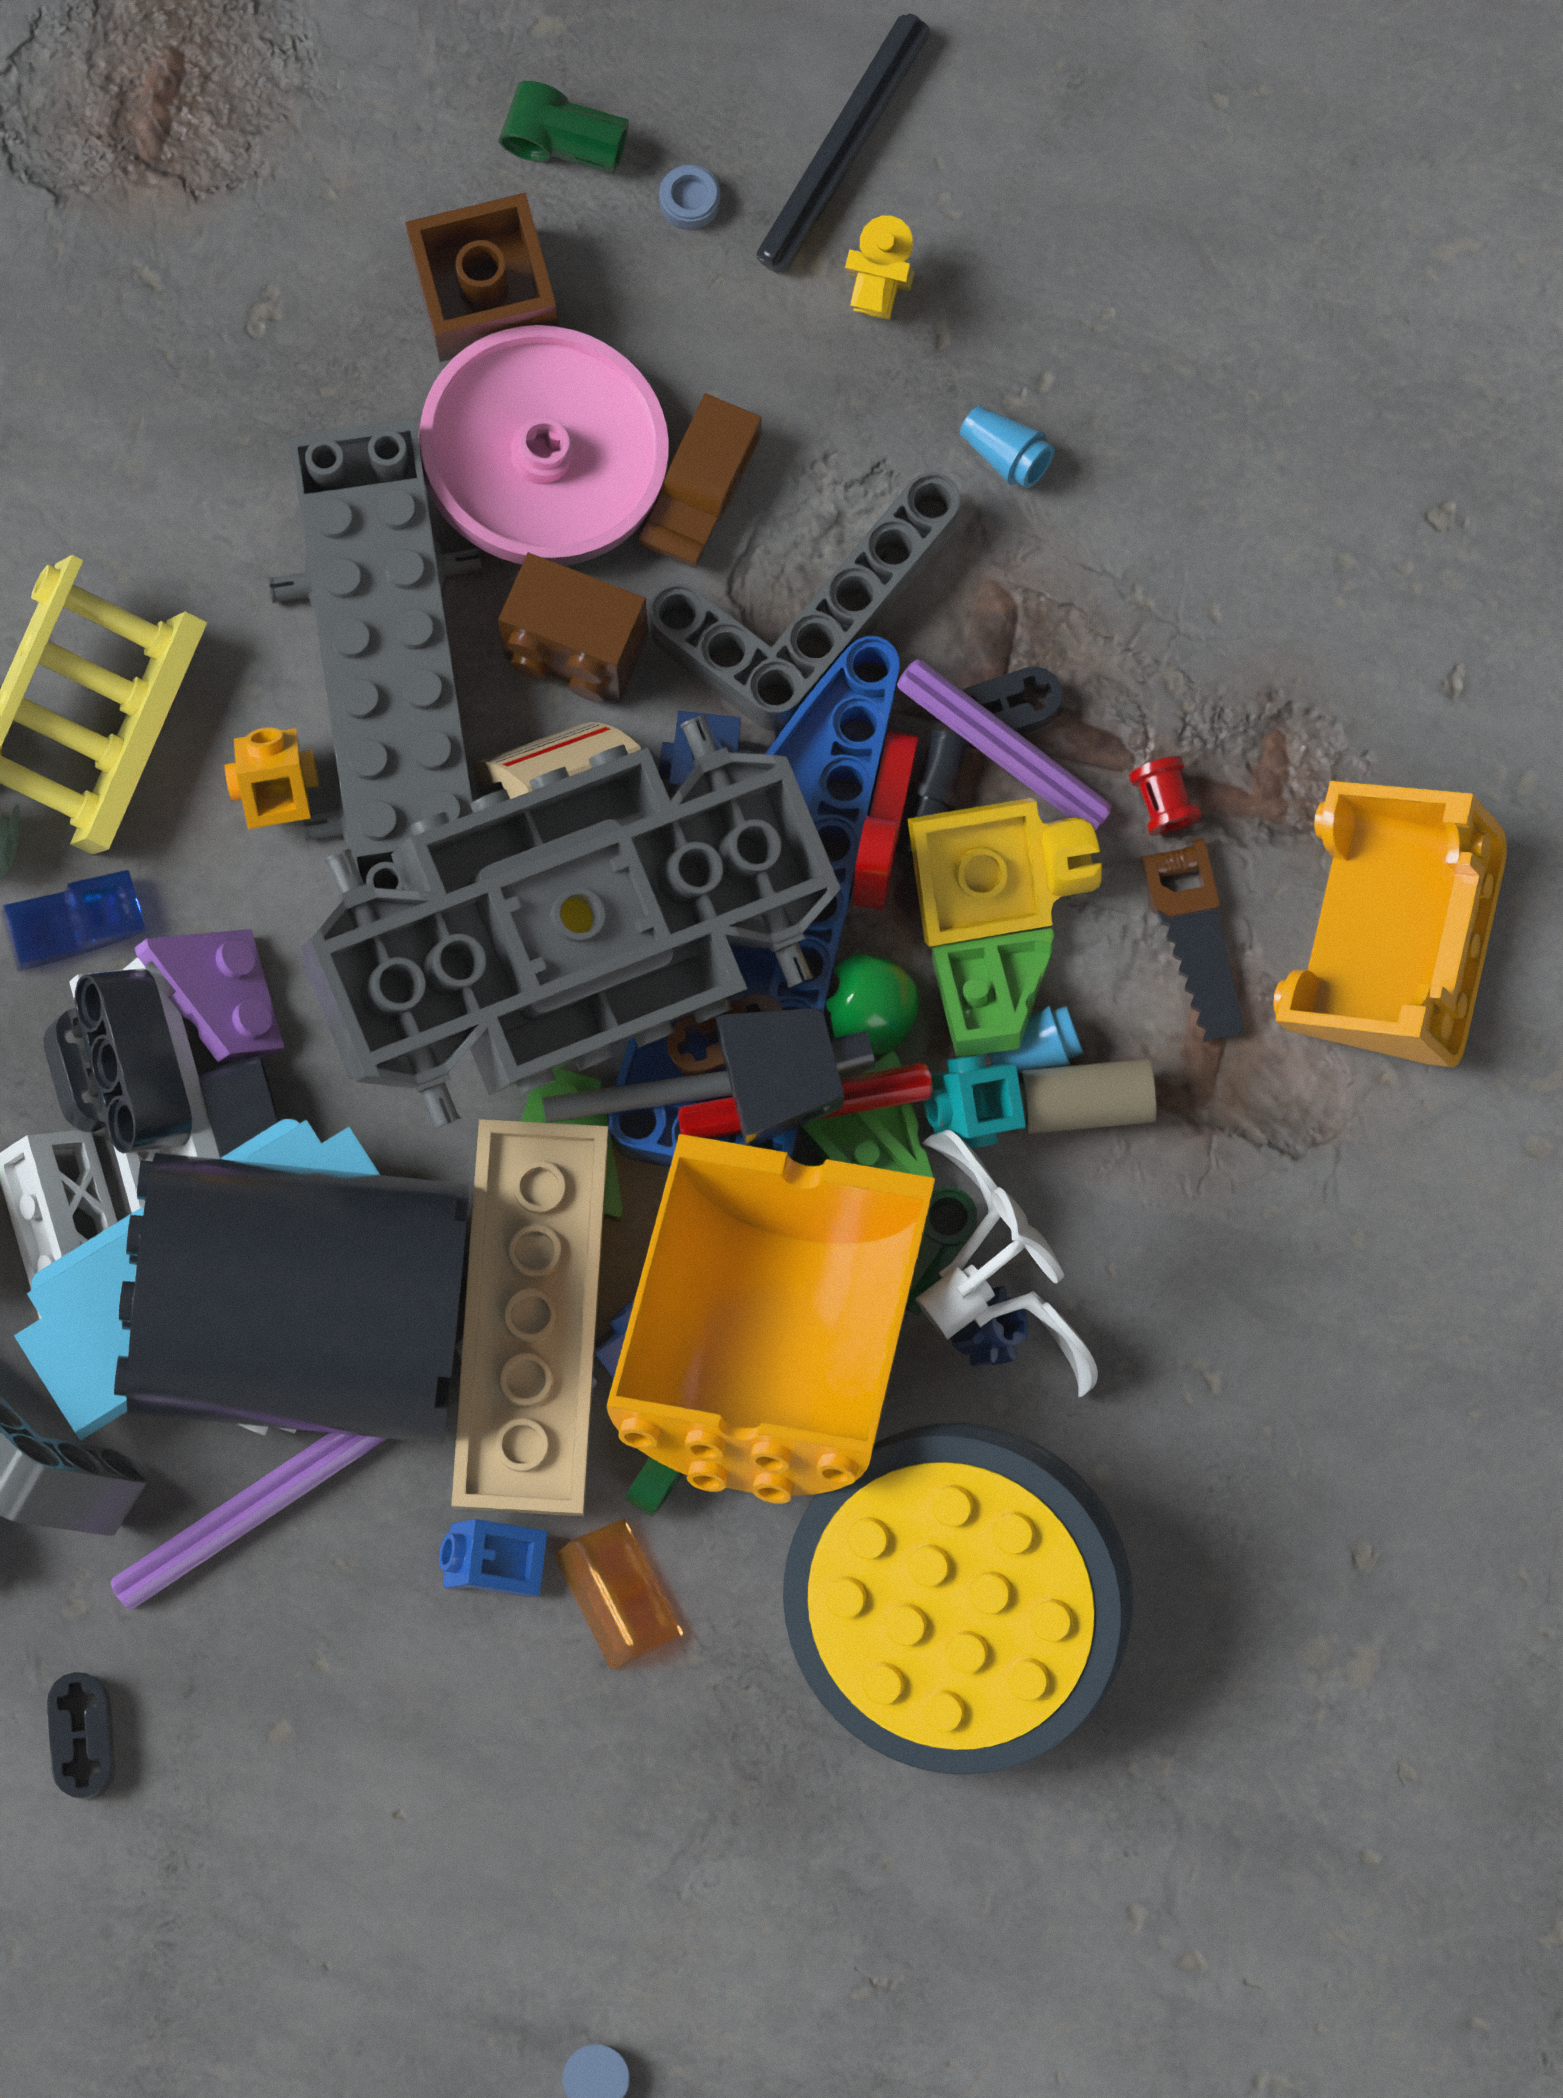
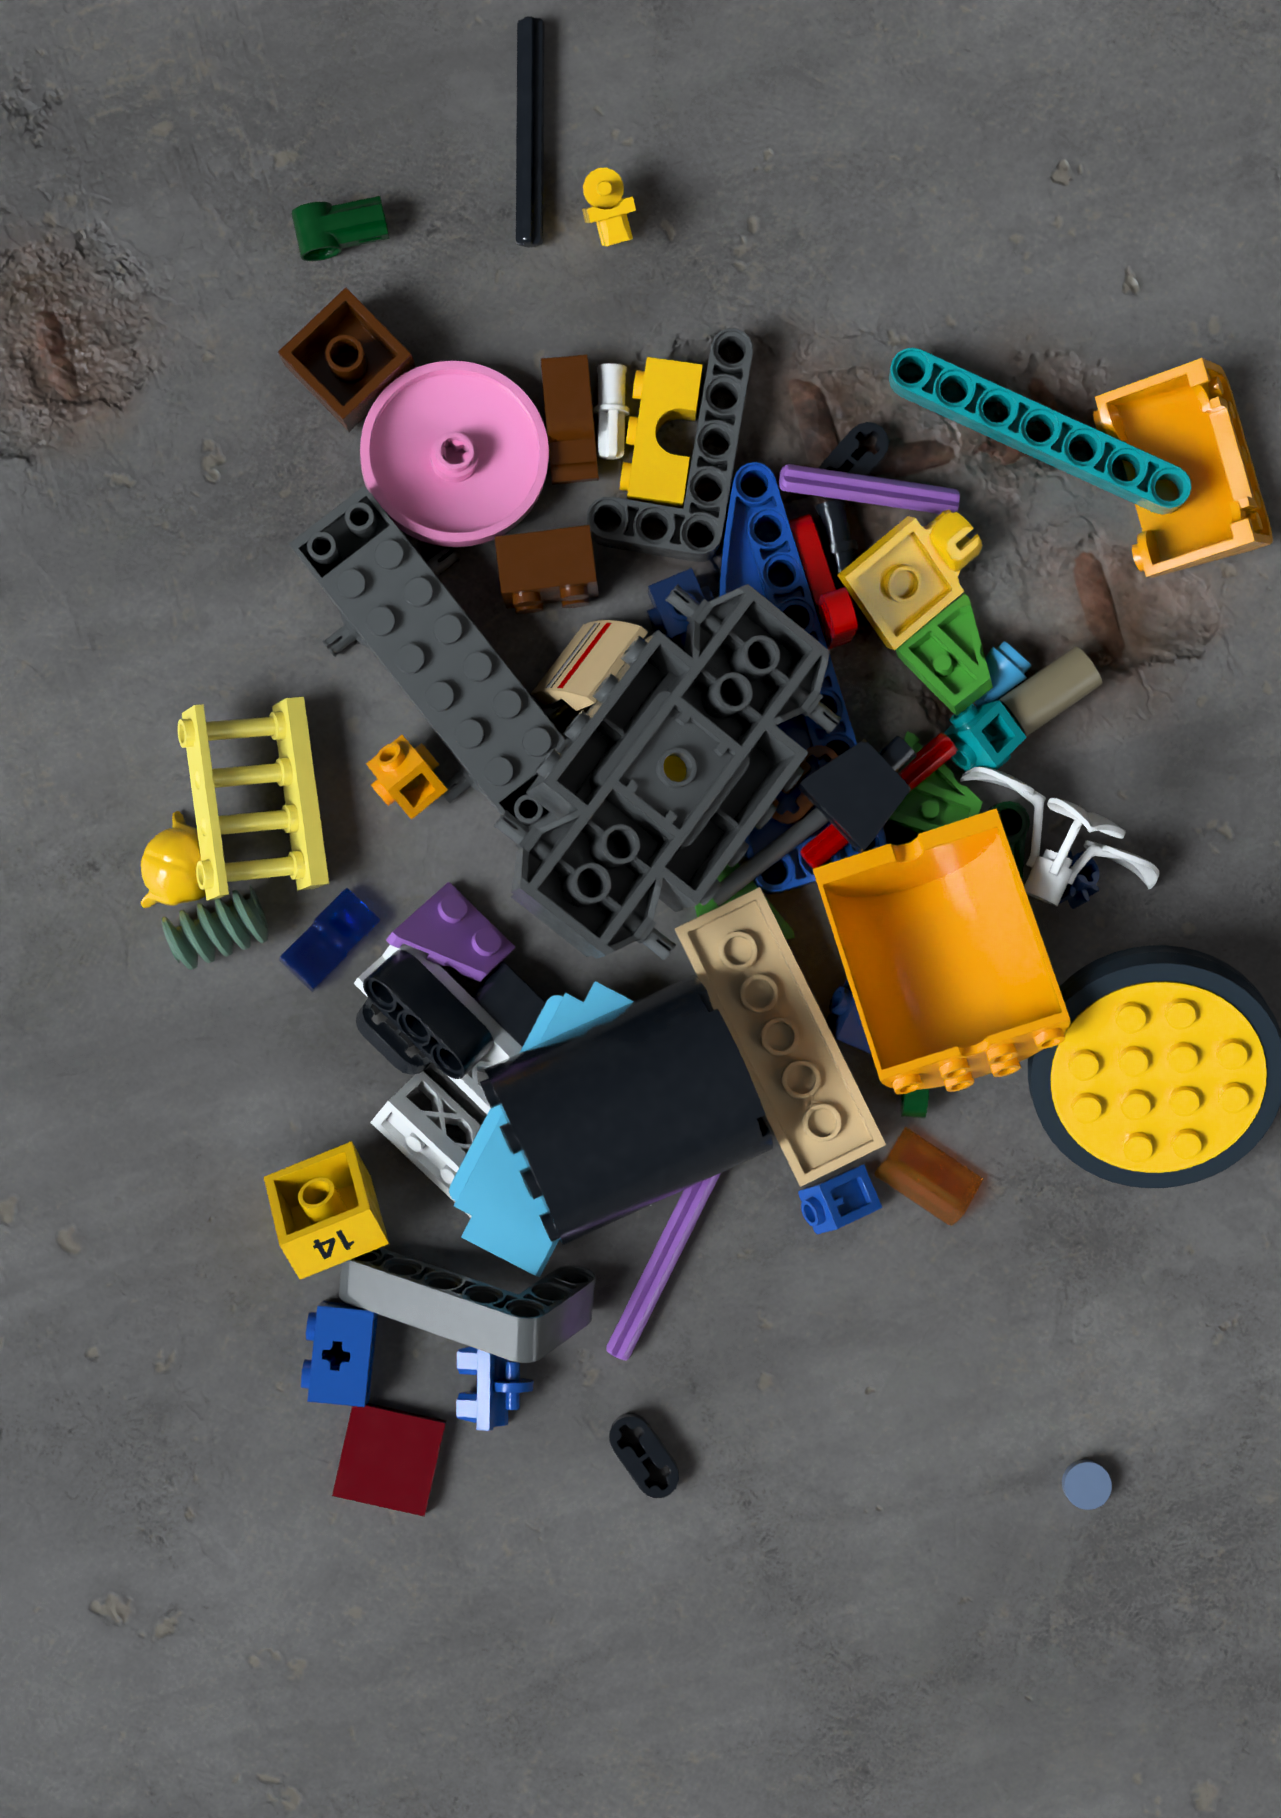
camera: 25 degrees left, 10 degrees up
(689, 197) = (448, 226): sand blue tile -> none
(755, 499) = (611, 411): none -> white axle
(827, 512) = (666, 393): none -> yellow arch
(873, 998) = (881, 708): green hair -> none
(1008, 446) = (756, 283): dark azure cone -> none
(1165, 795) = (989, 464): red bush -> none
(1196, 936) = (1058, 545): black piece -> none
(1251, 816) = (1062, 429): none -> teal beam

